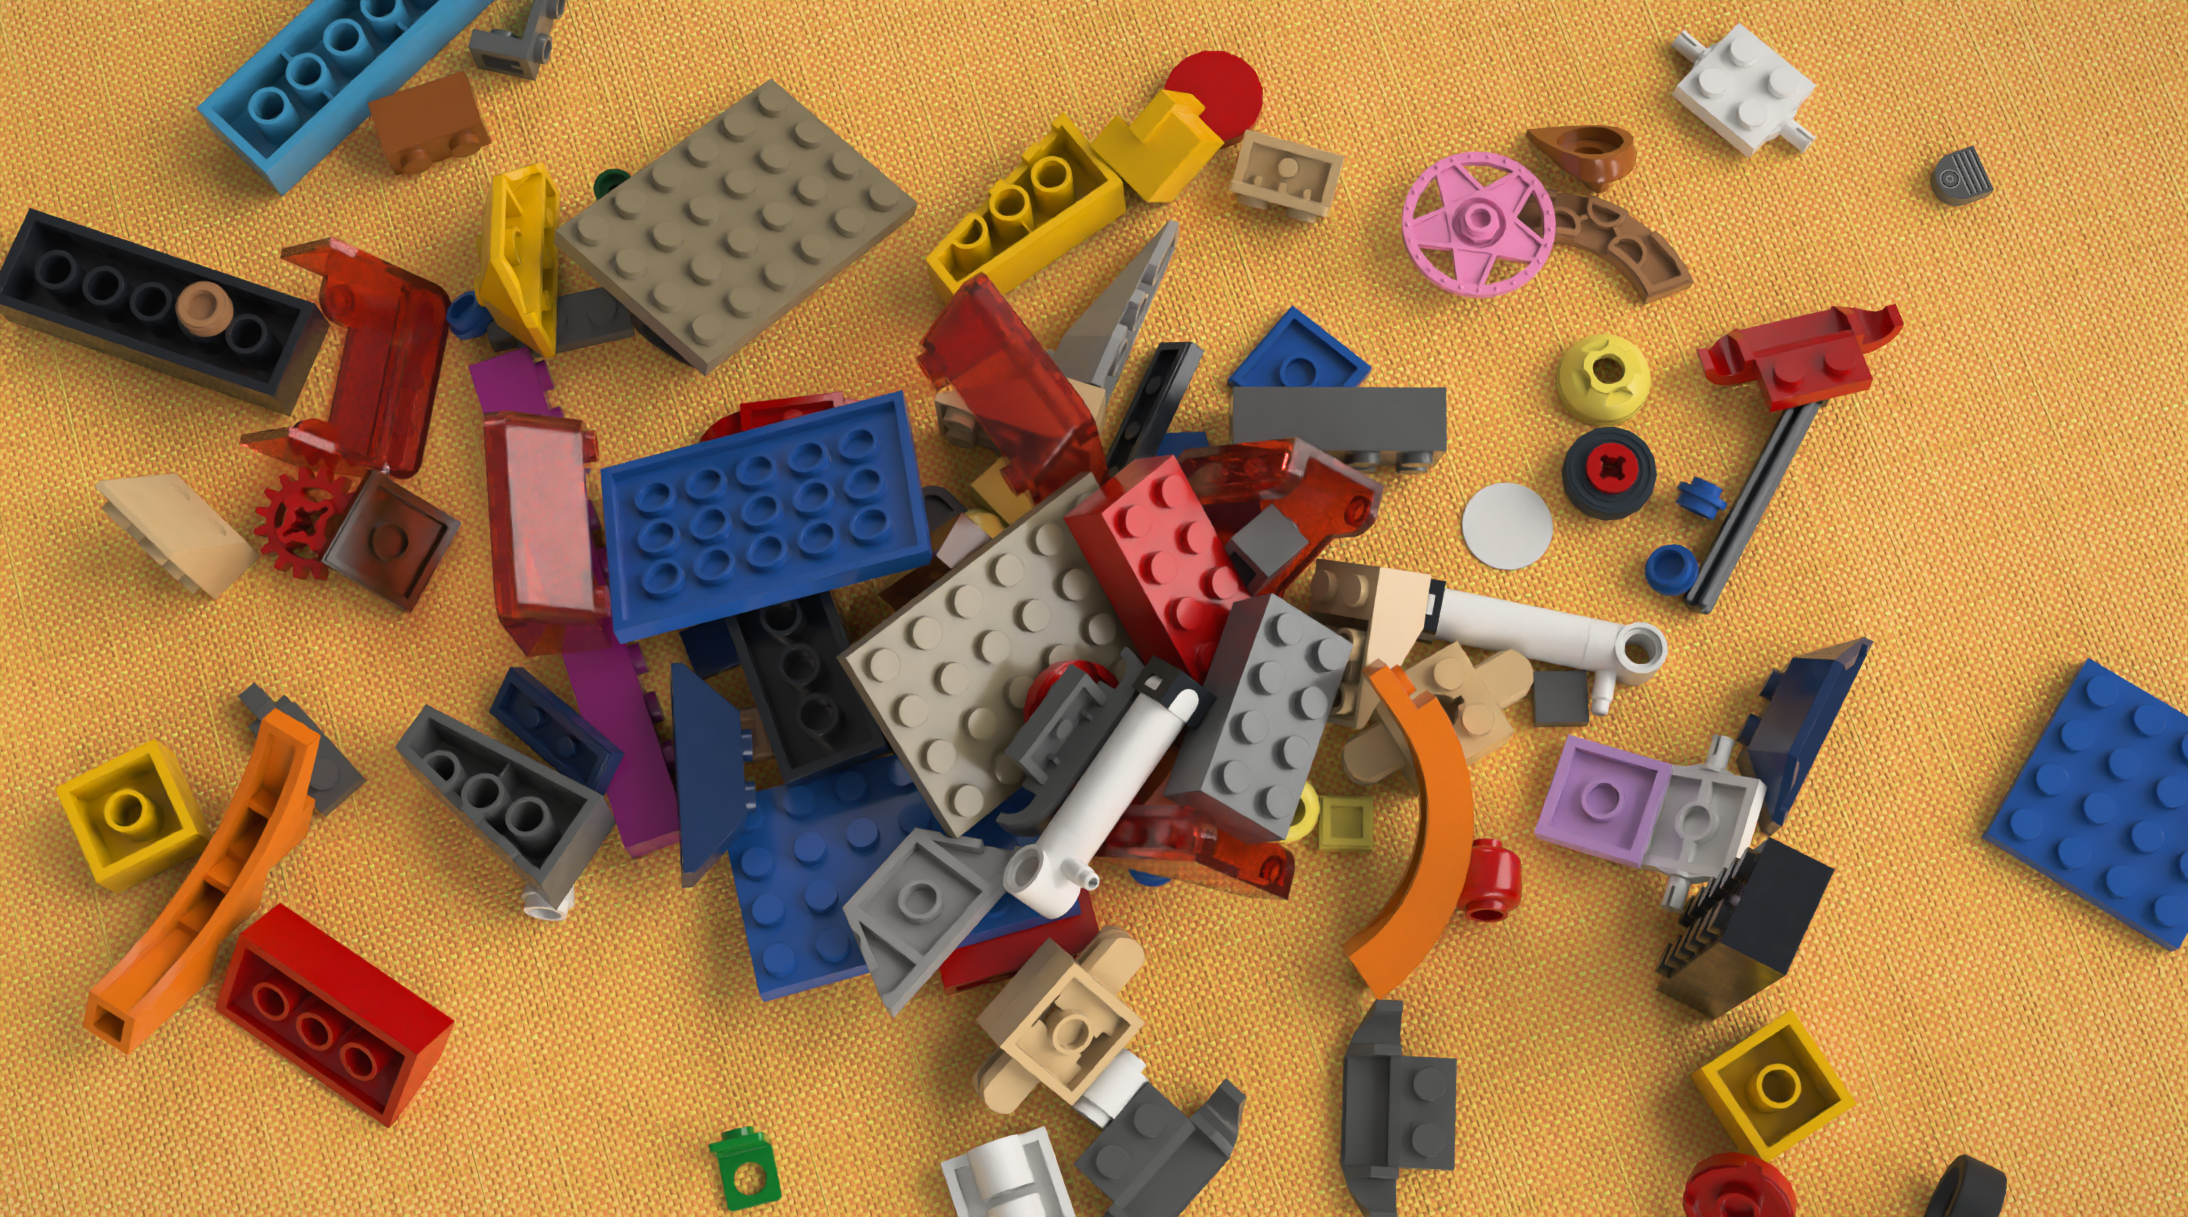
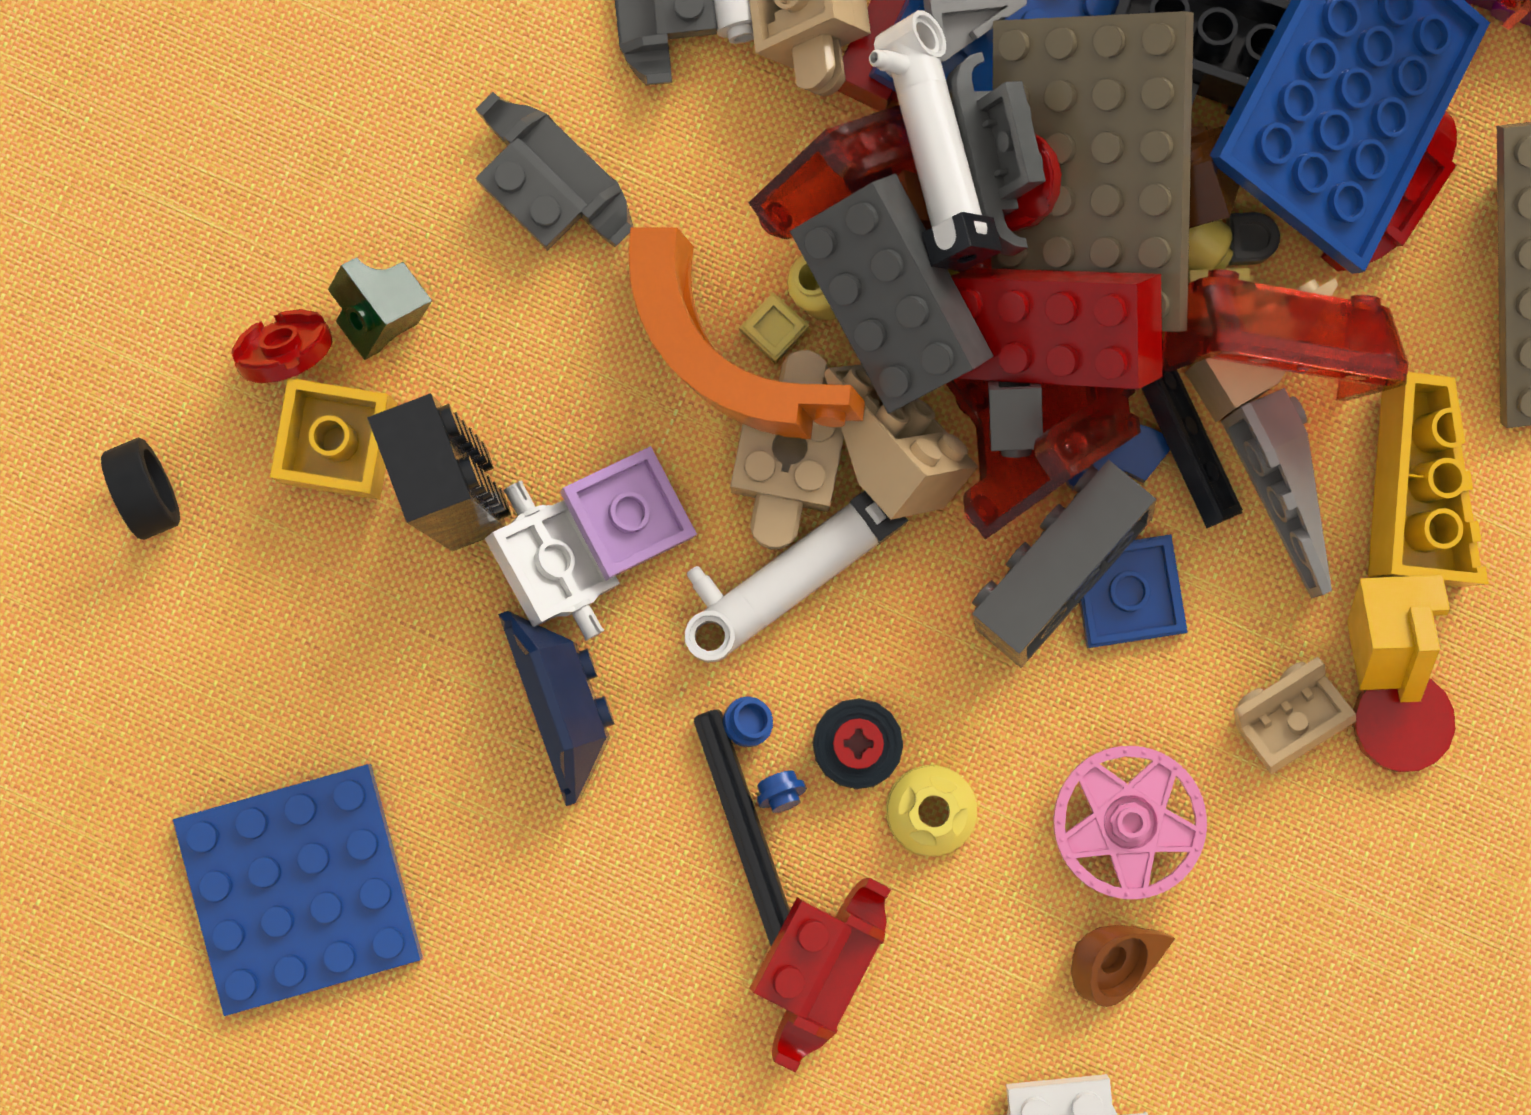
camera: 130 degrees right, 10 degrees up
(1491, 882) = (645, 382): red head -> none
(1507, 526) = (885, 639): white sticker -> none
(1560, 699) = (728, 557): dark grey tile -> none
(1615, 237) = (1036, 922): medium nougat tile -> none
(1633, 1155) = (377, 304): none -> brick

